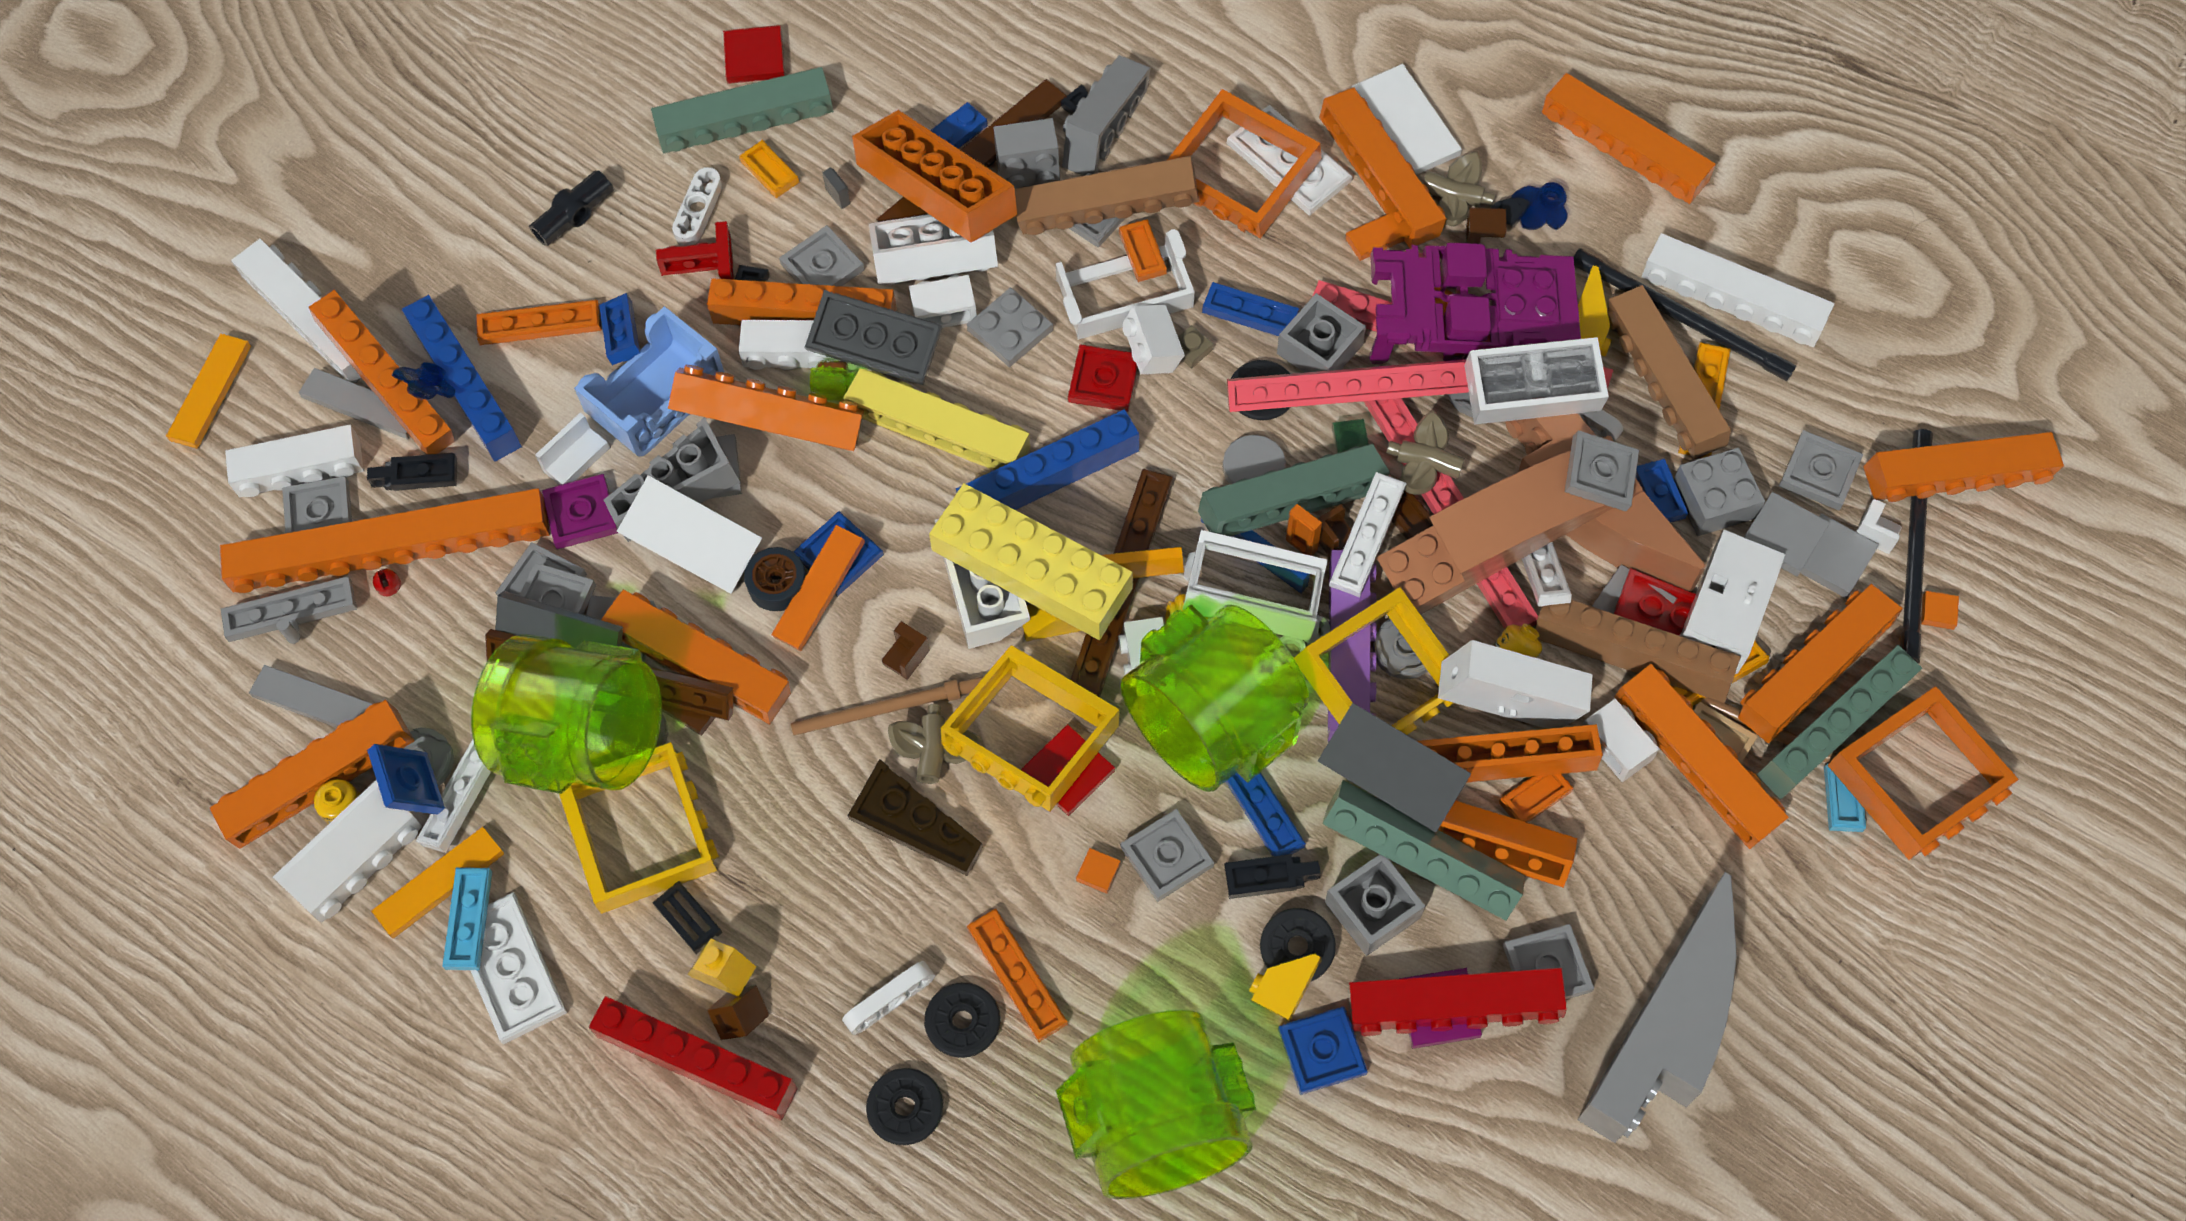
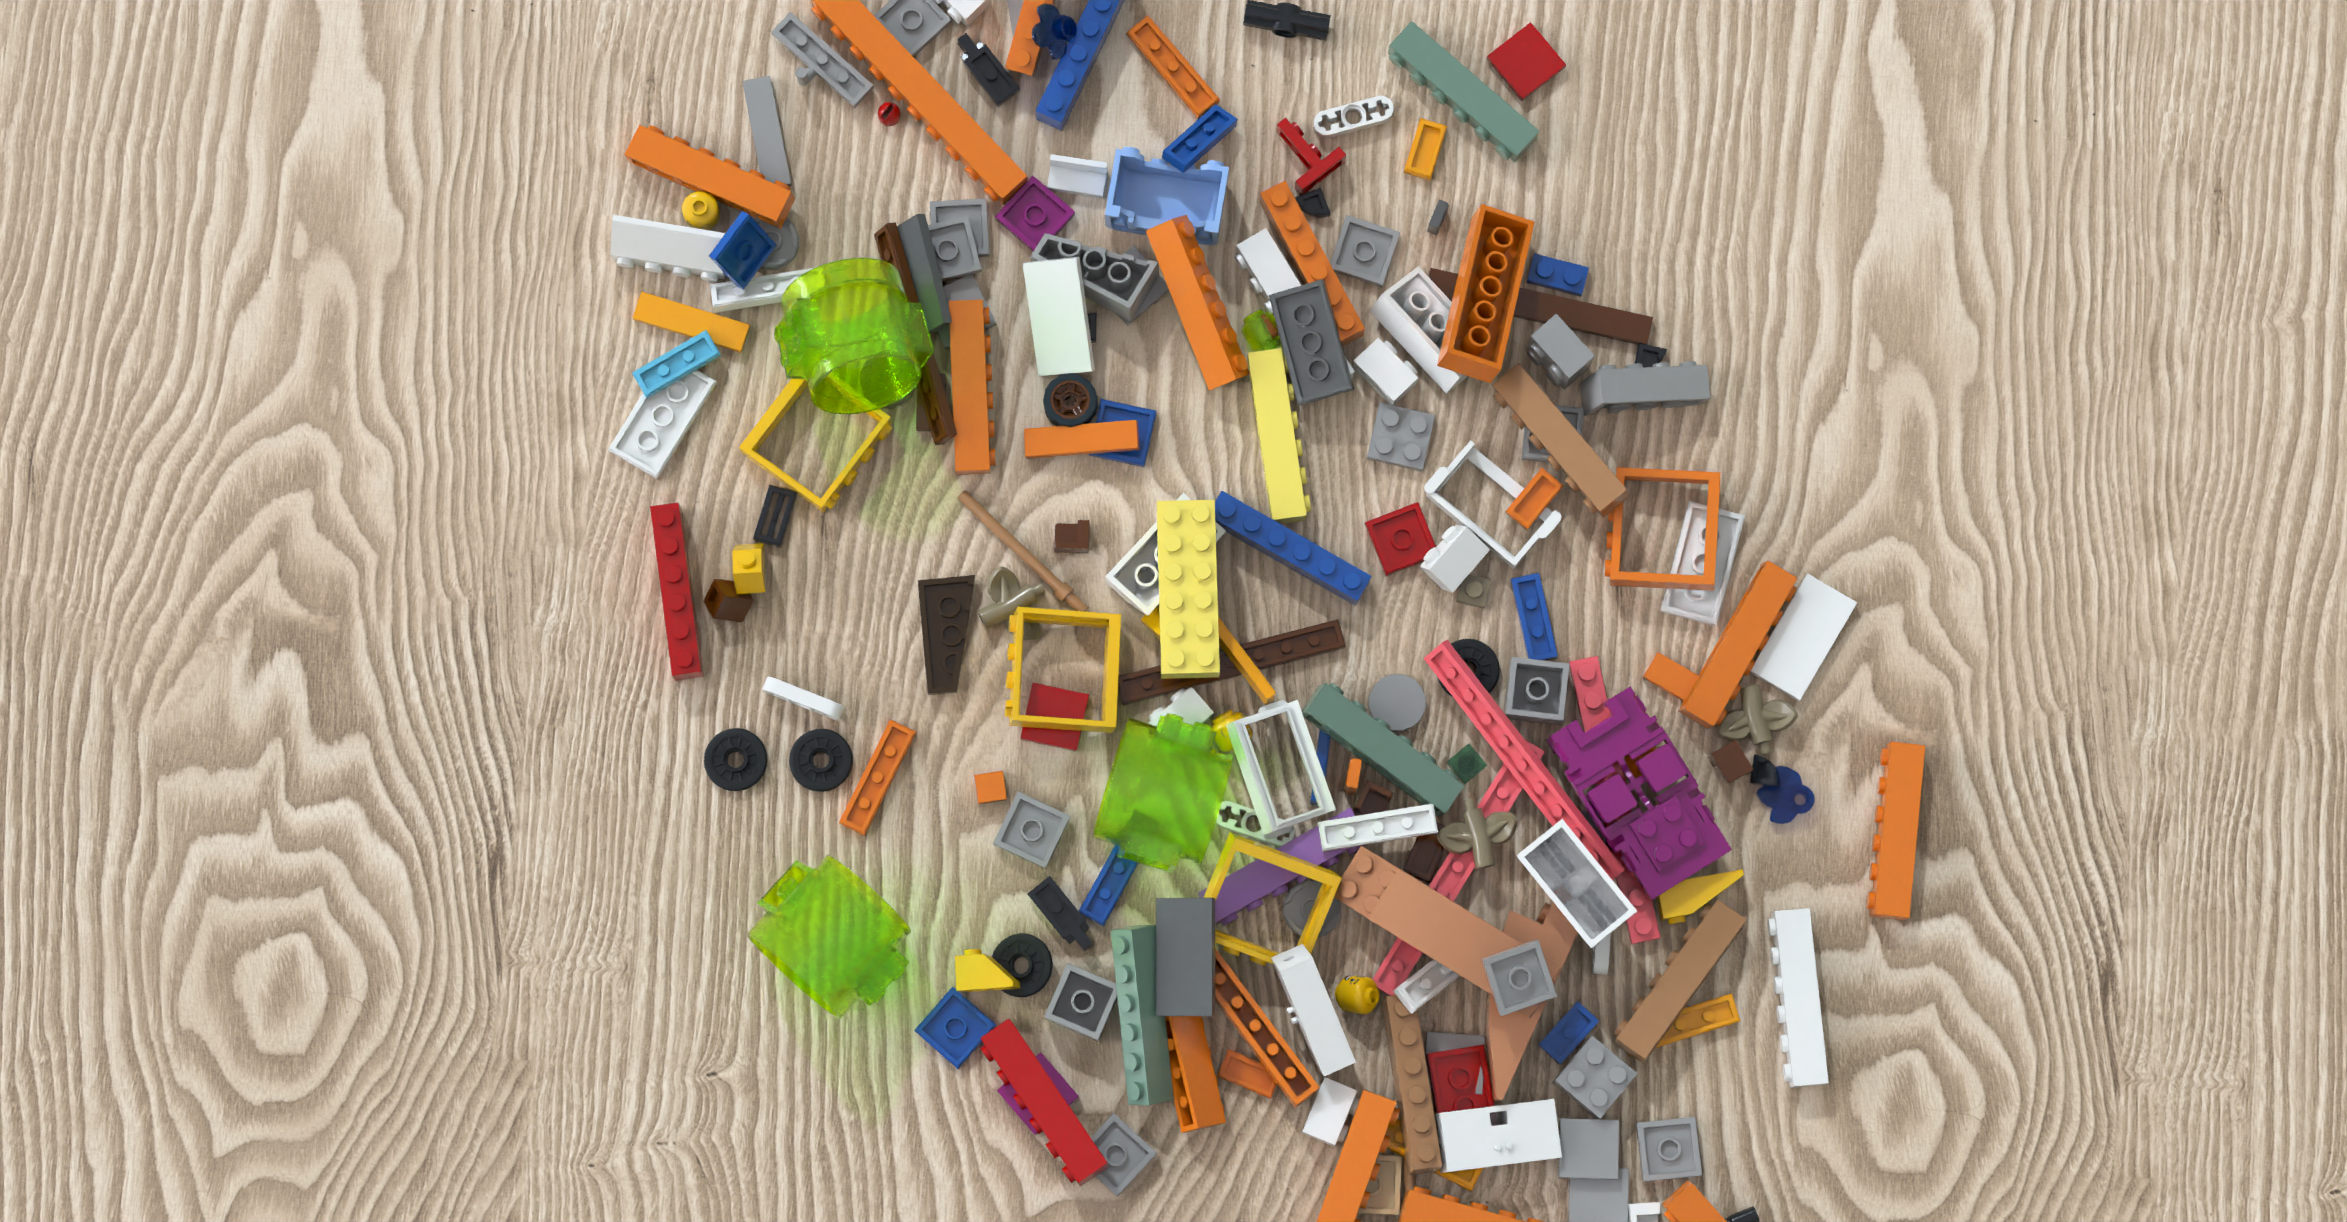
camera: 55 degrees right, 15 degrees up
(1767, 360) = (1749, 1056): black piece -> none

